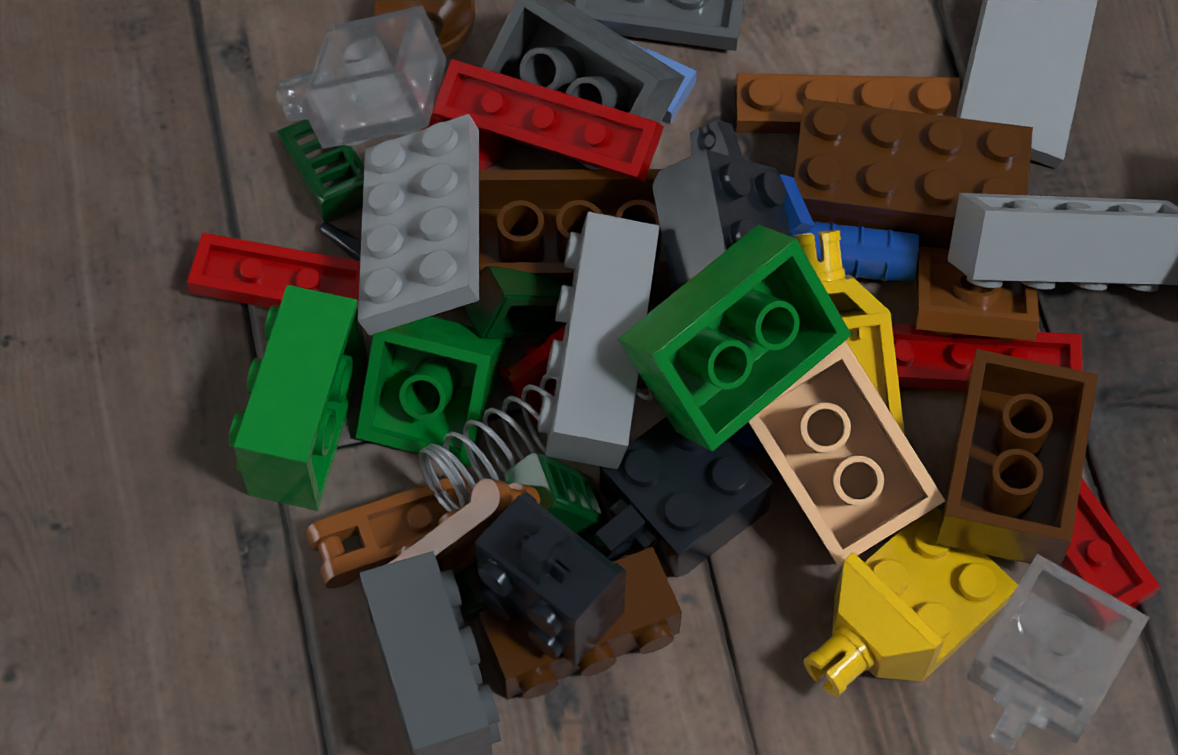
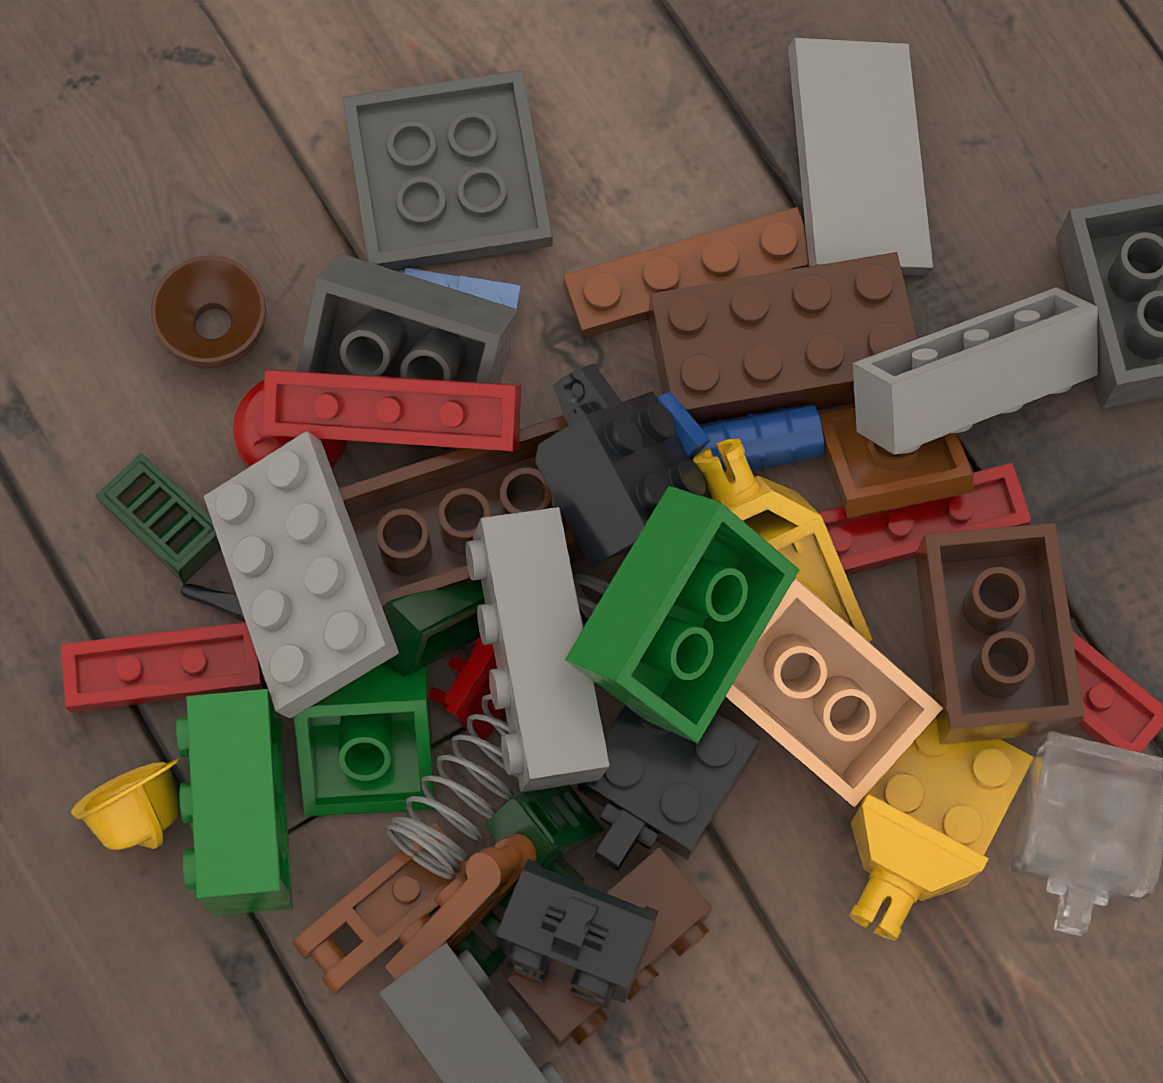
camera: 20 degrees left, 10 degrees up
(212, 371) = (132, 807): none -> yellow piece
(369, 79) = (180, 416): clear hinge -> none

